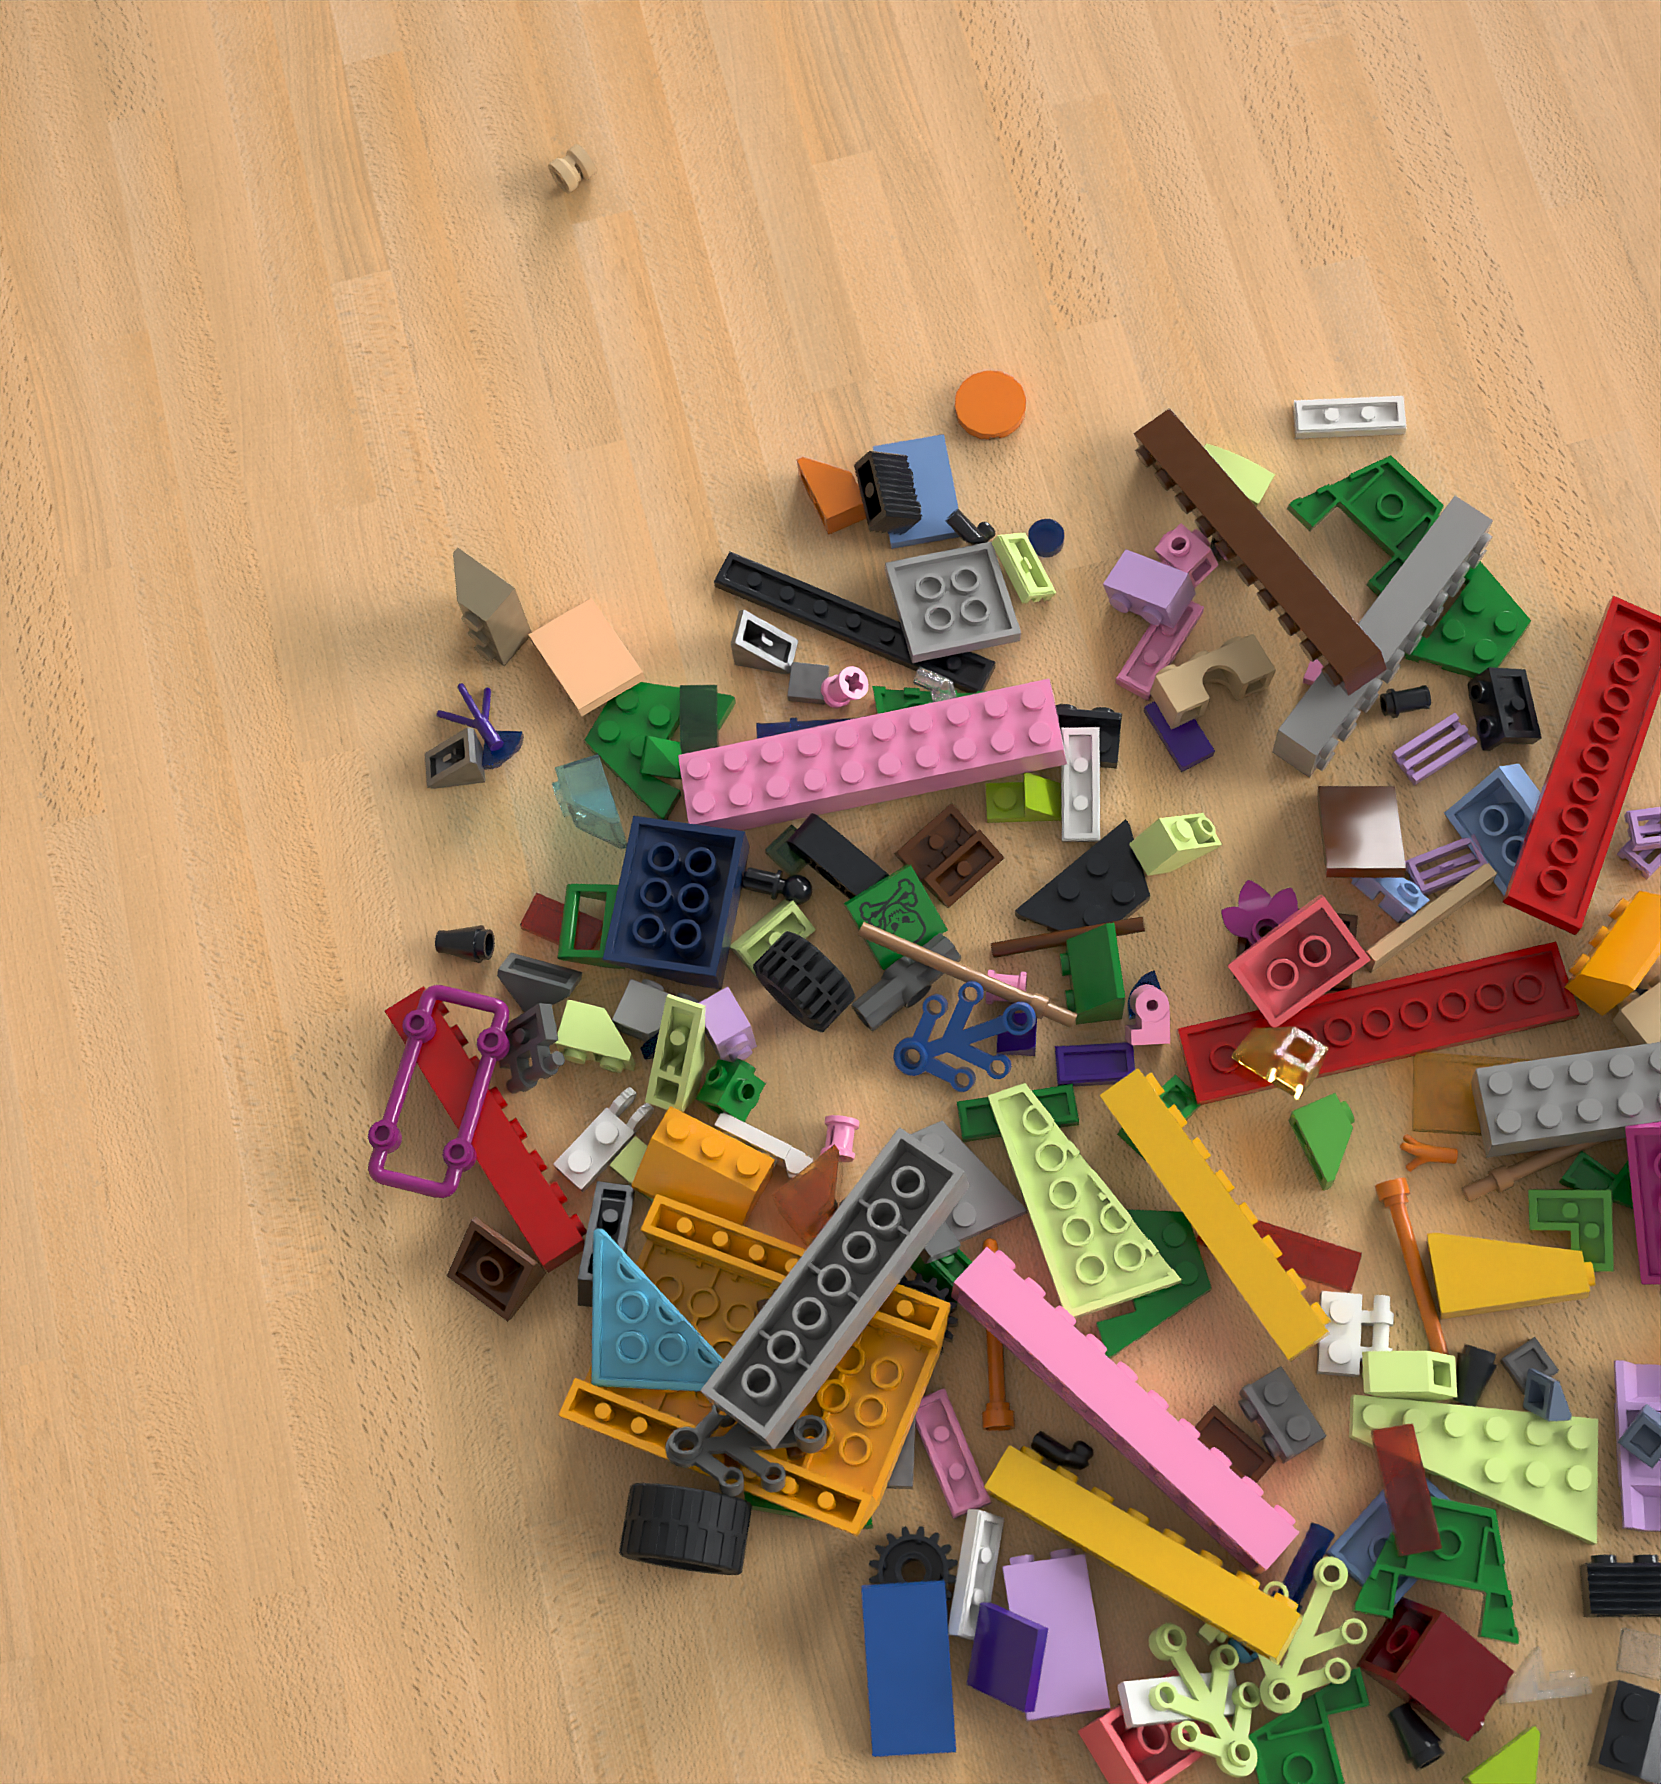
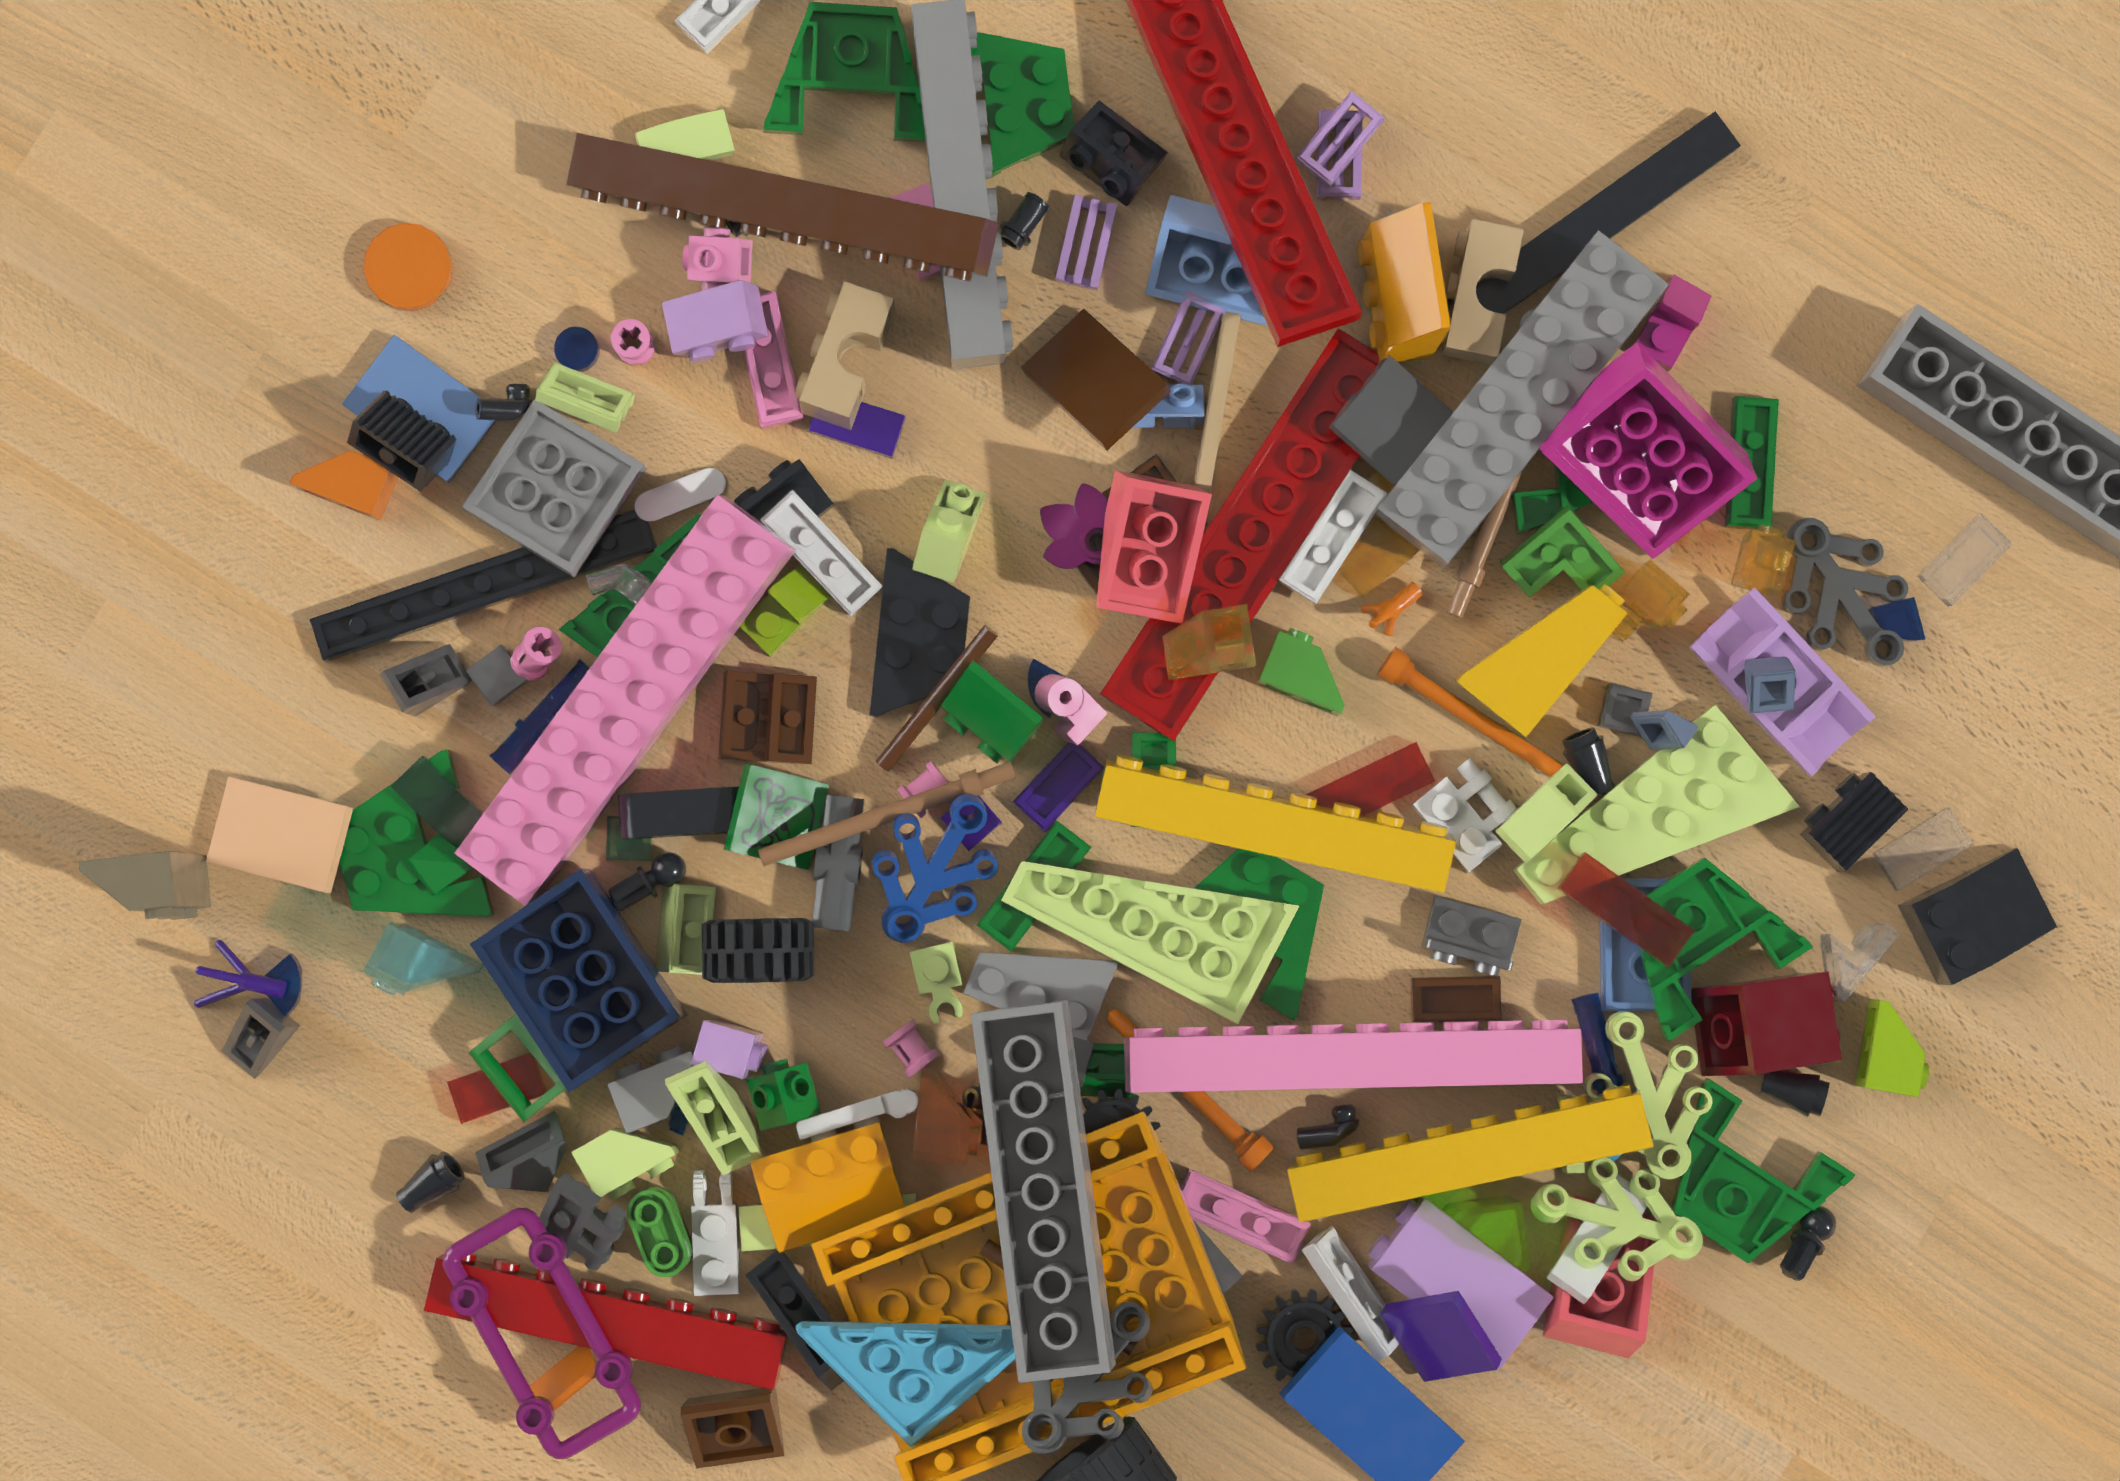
camera: 55 degrees left, 15 degrees up
(424, 1141) = (566, 1376): none -> orange slope
(572, 1102) = (660, 1231): none -> bright green brick
(901, 1109) = (937, 972): none -> yellowish green plate
(1020, 672) = (680, 494): none -> white sticker
(1084, 549) = (634, 329): none -> bright pink bush
(1115, 1616) = (1497, 1224): none -> clear neon green slope
(1425, 1069) = (1332, 537): none -> white tile
(1537, 1023) = (1390, 419): none -> dark grey slope
(1615, 1304) = (1651, 599): none -> clear yellow brick

